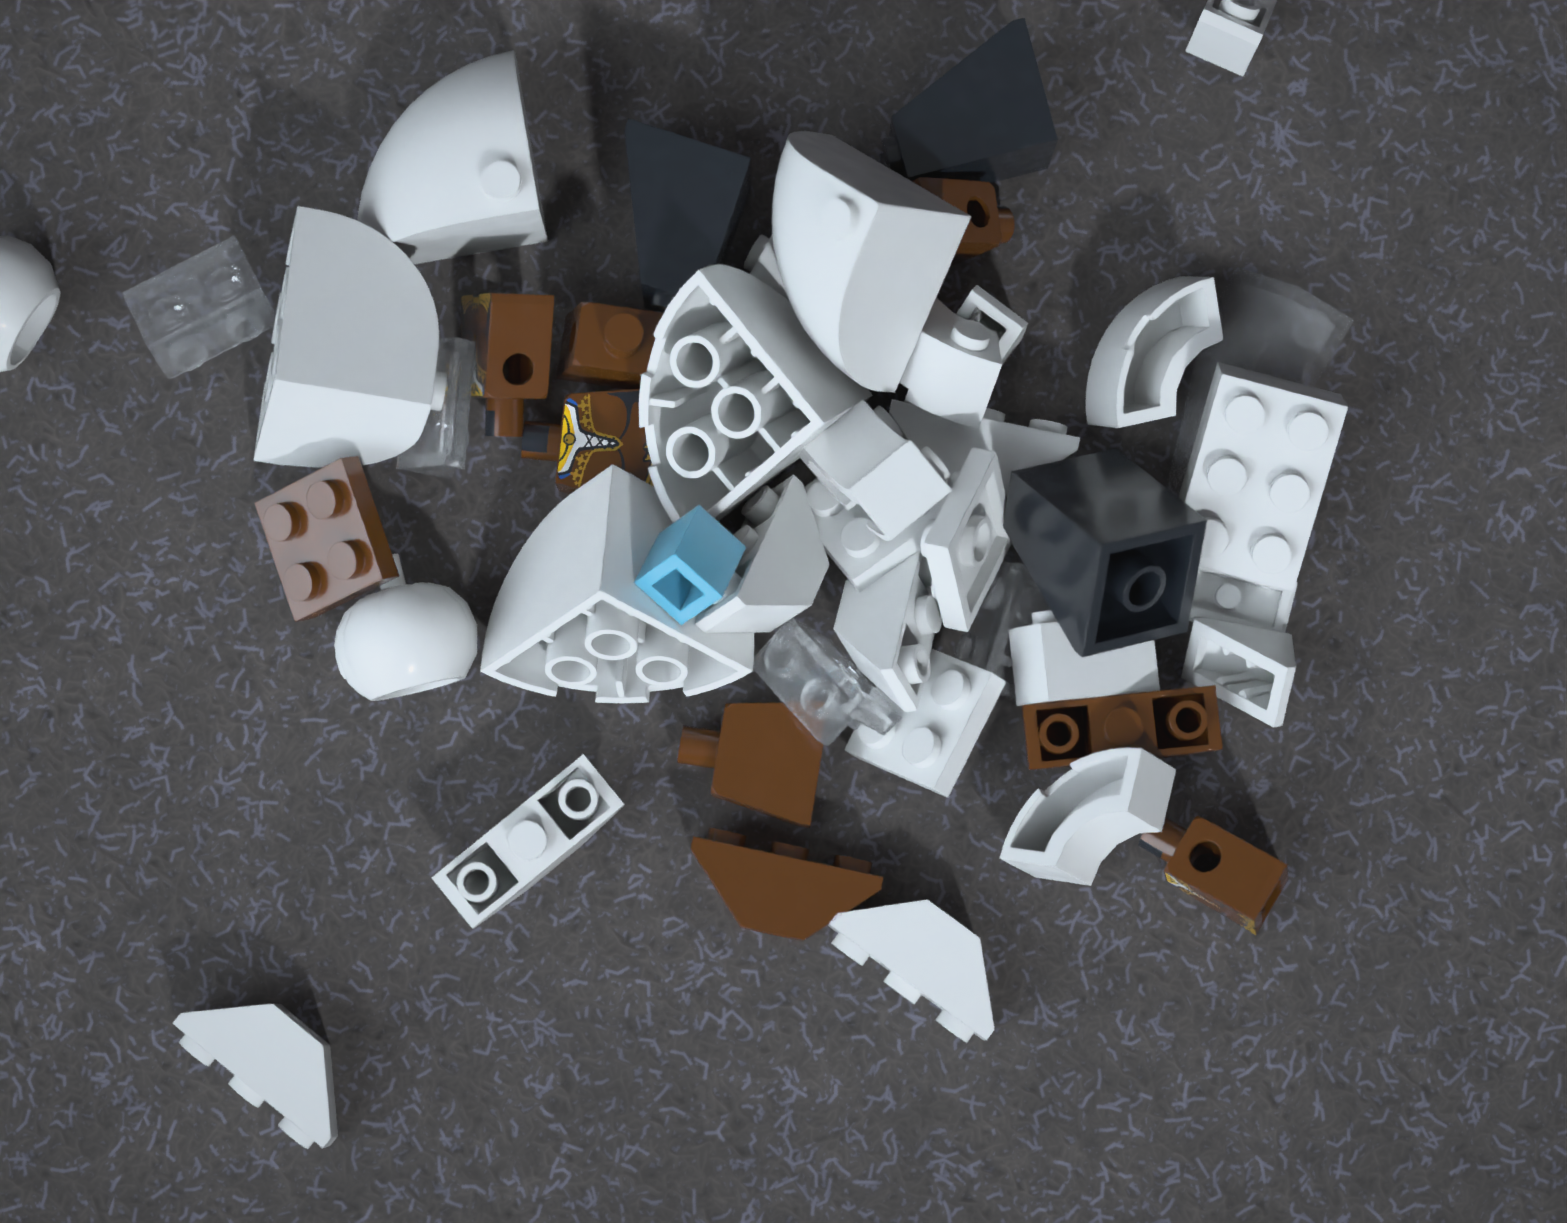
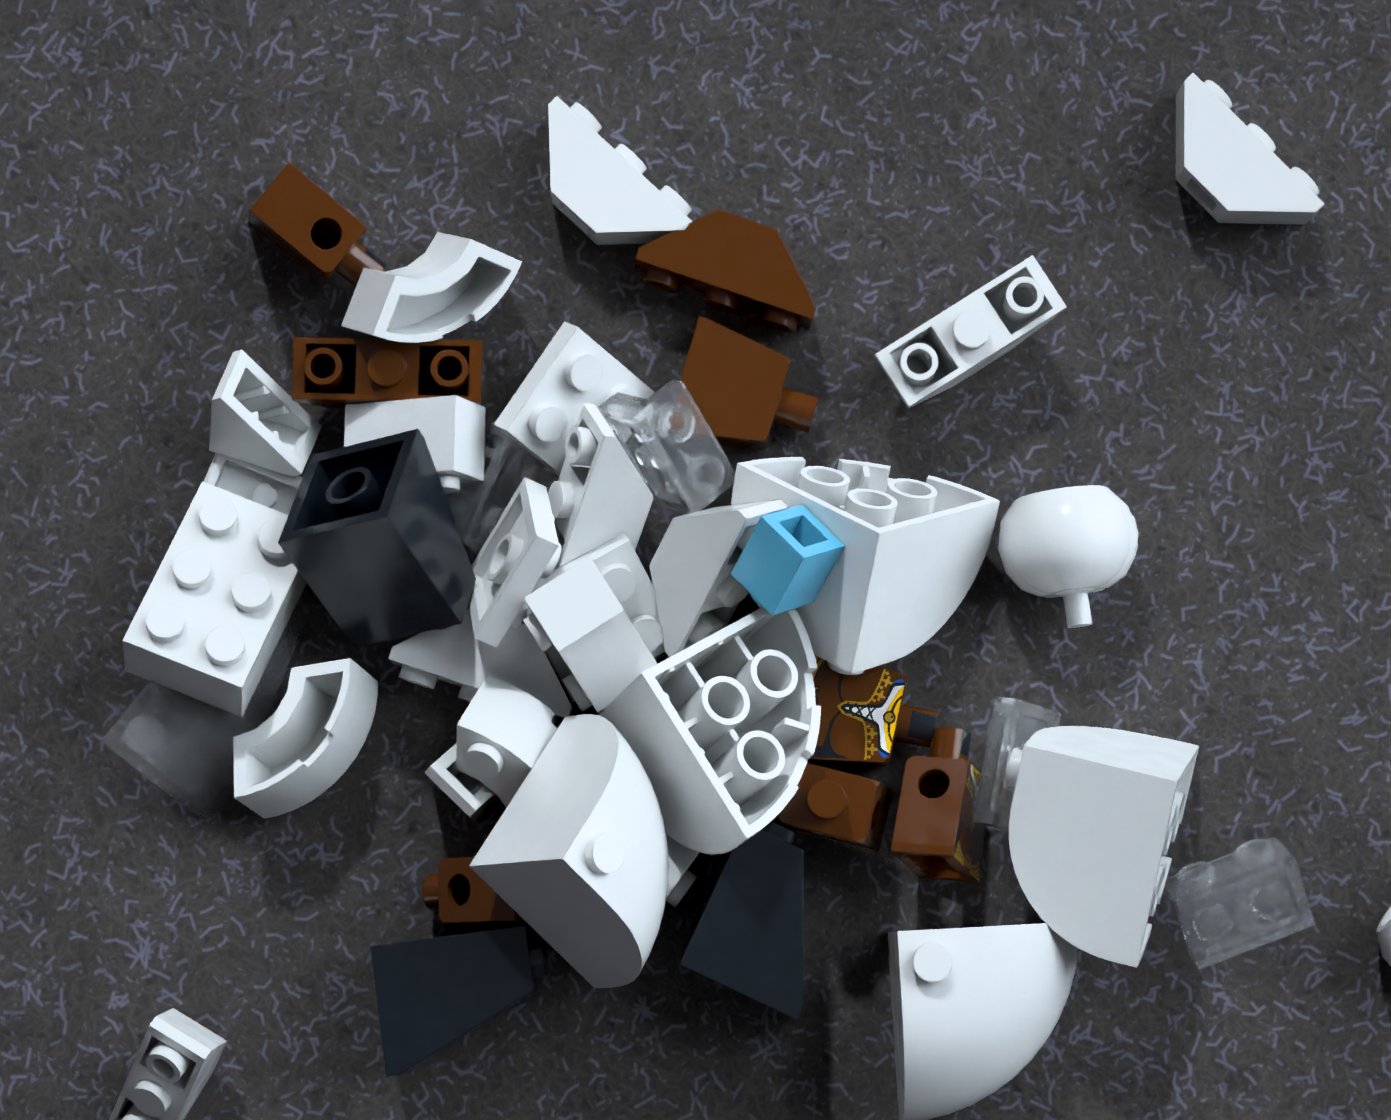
camera: 175 degrees left, 0 degrees up
(326, 538) = (1135, 650): plate -> none

